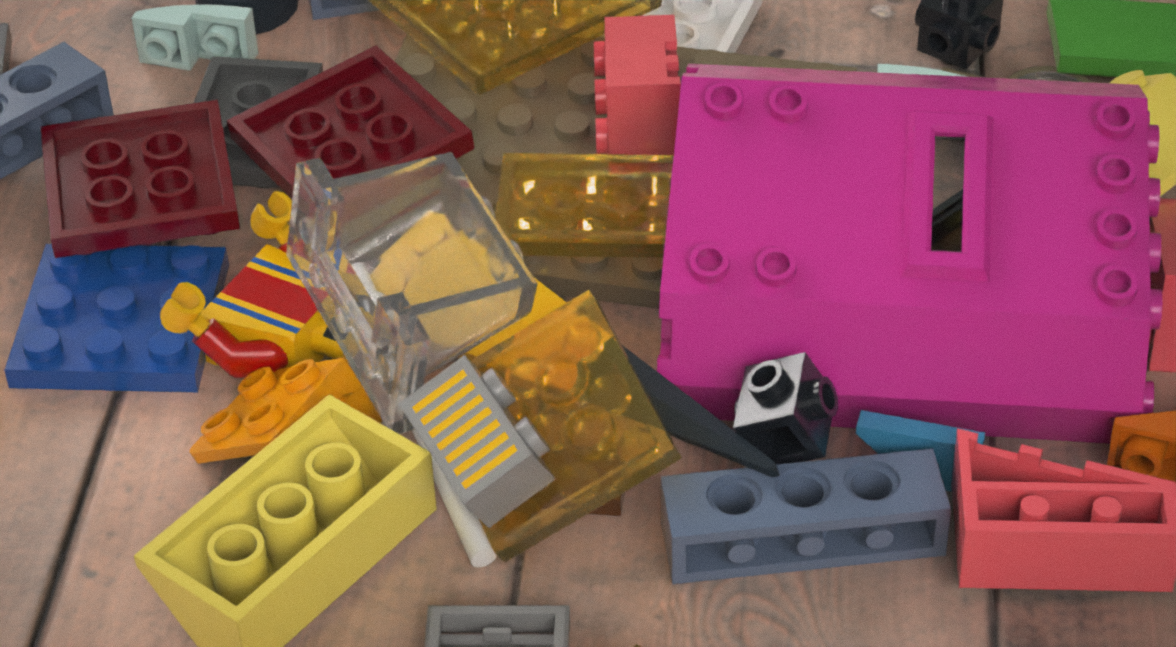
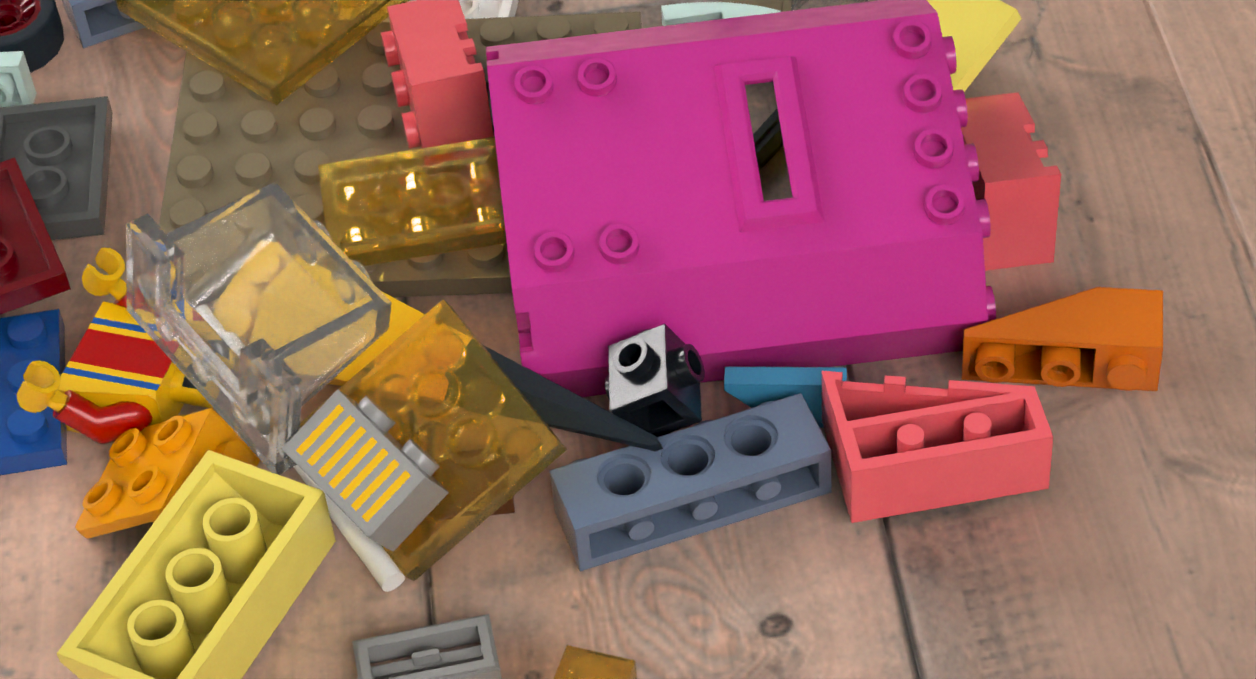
camera: 10 degrees left, 5 degrees up
(352, 118) = (157, 157): dark red plate -> none

